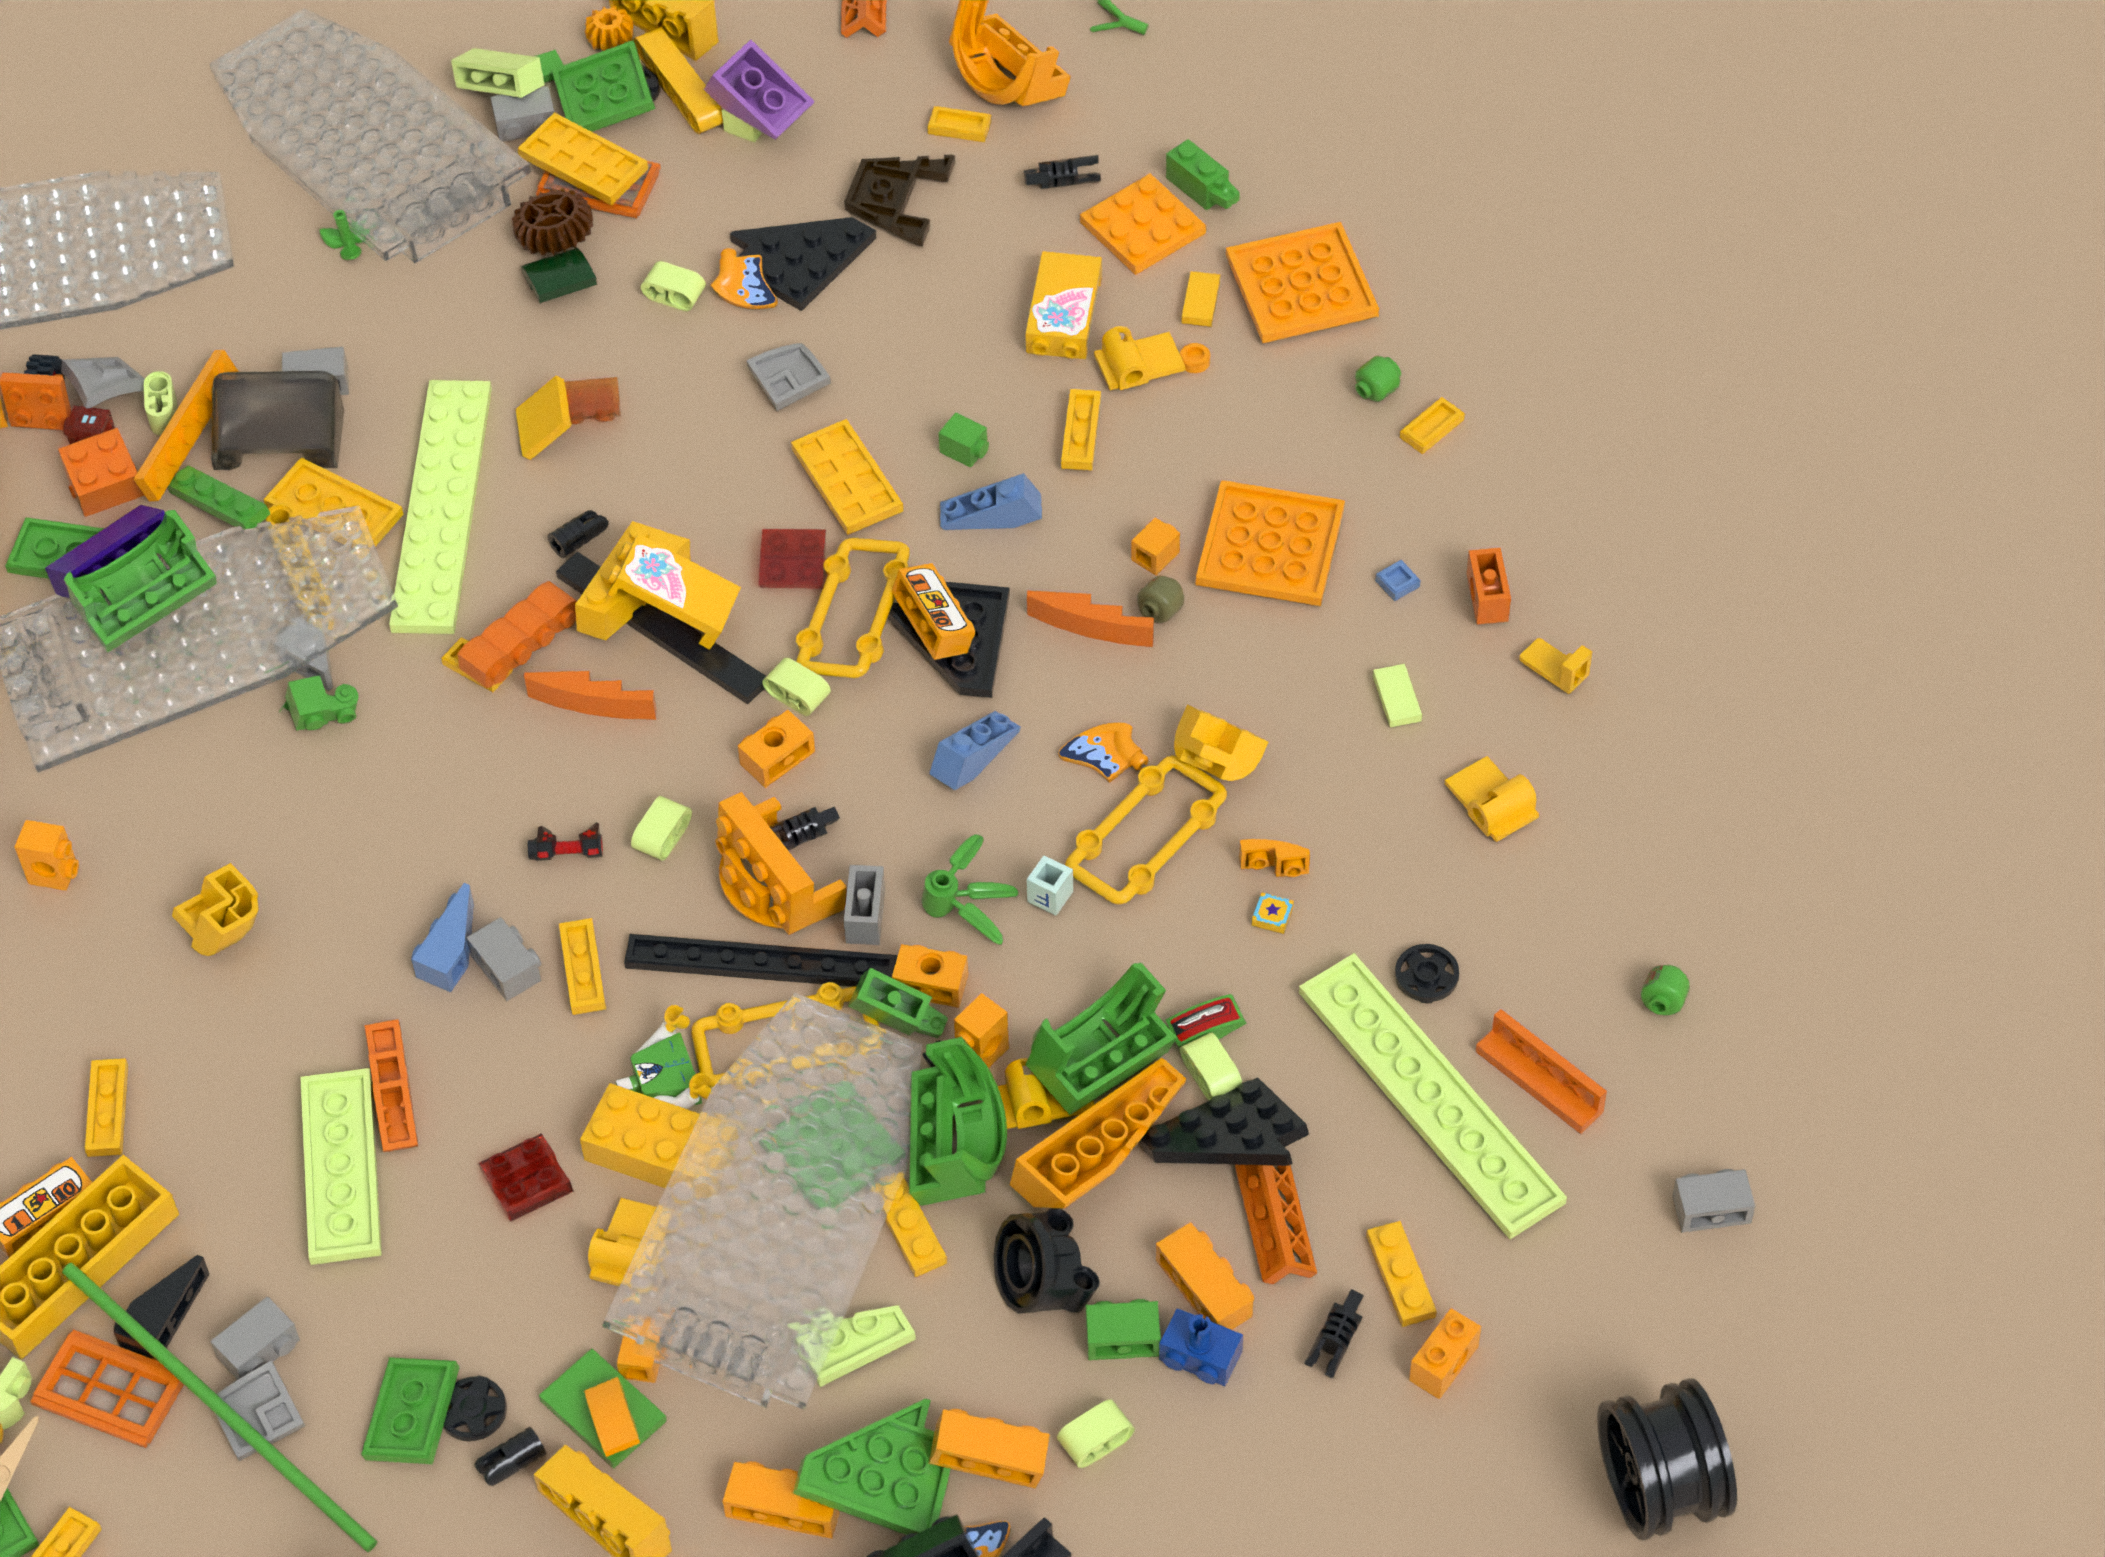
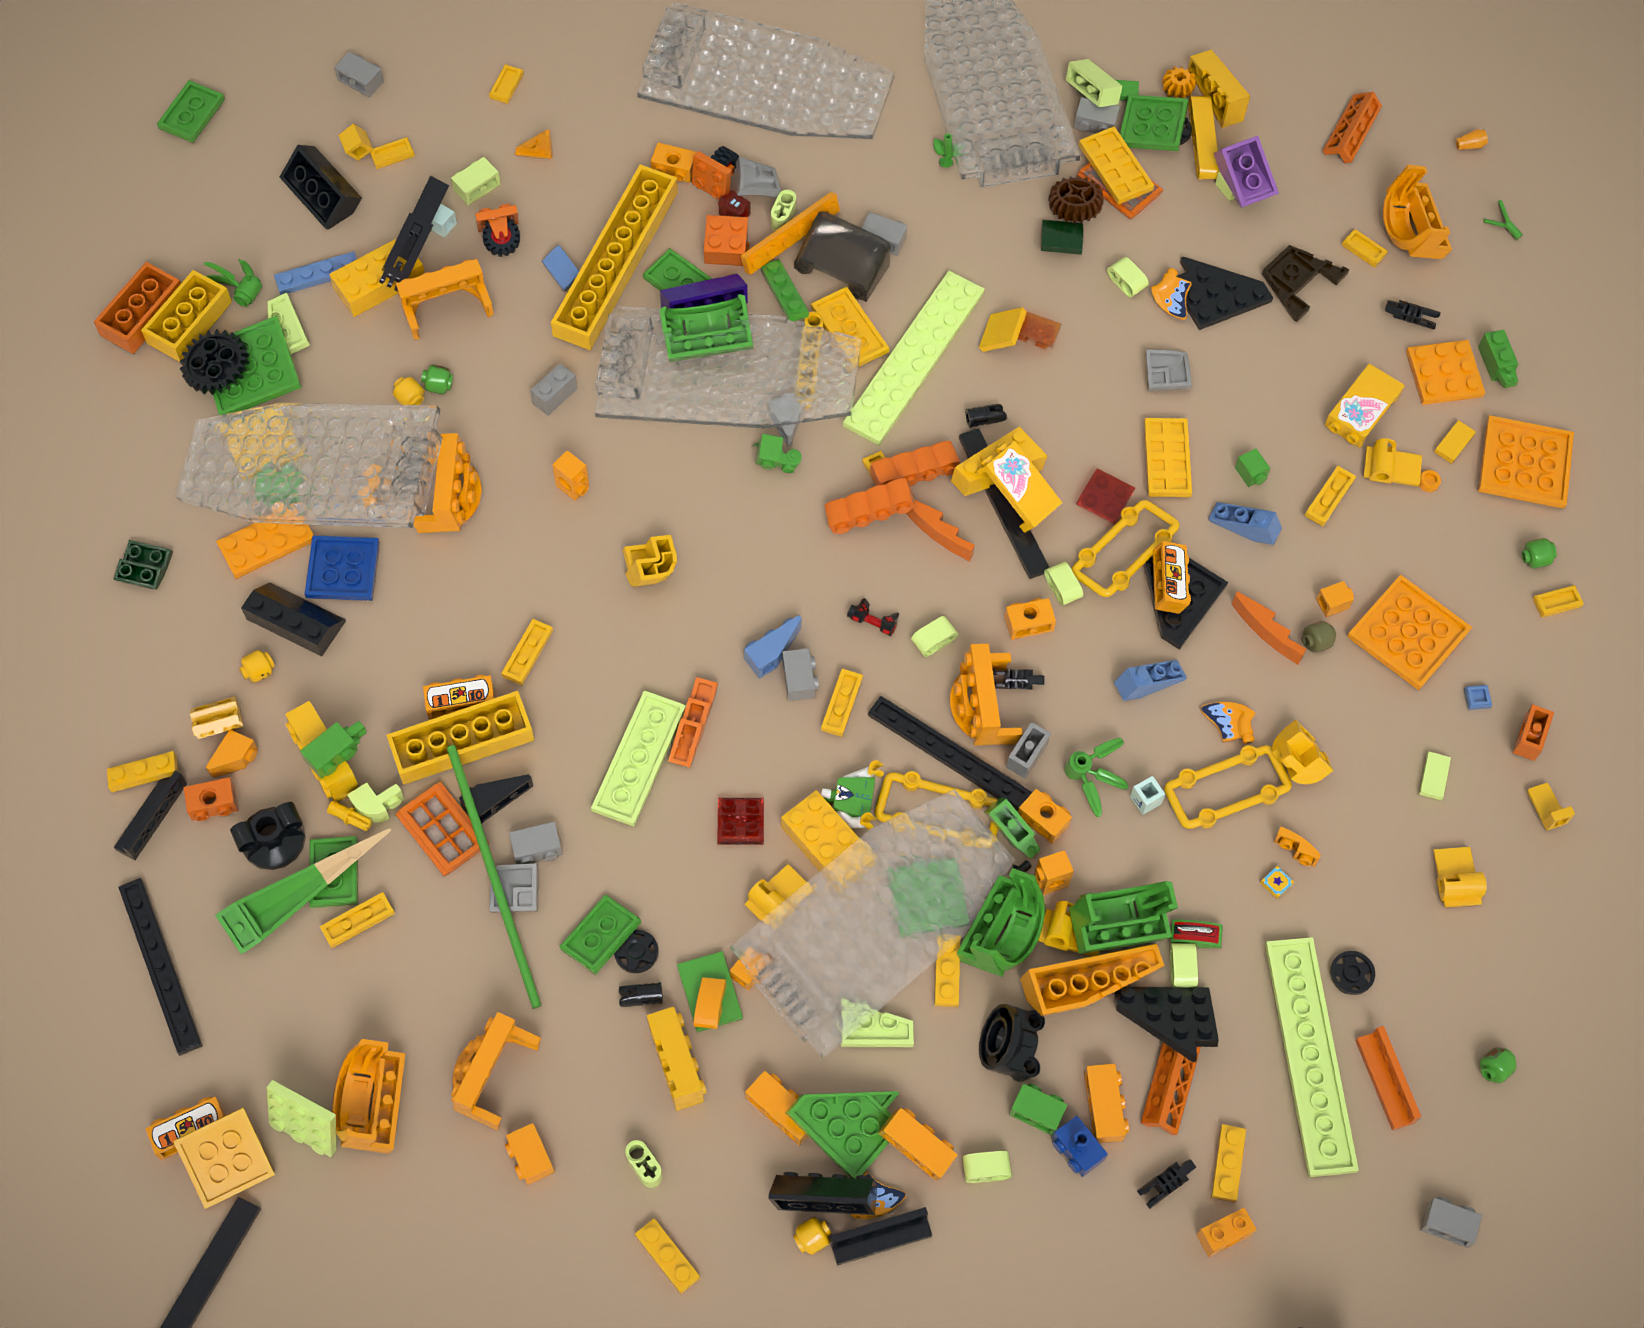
camera: 25 degrees right, 10 degrees up
(482, 708) = (870, 505): none -> orange brick

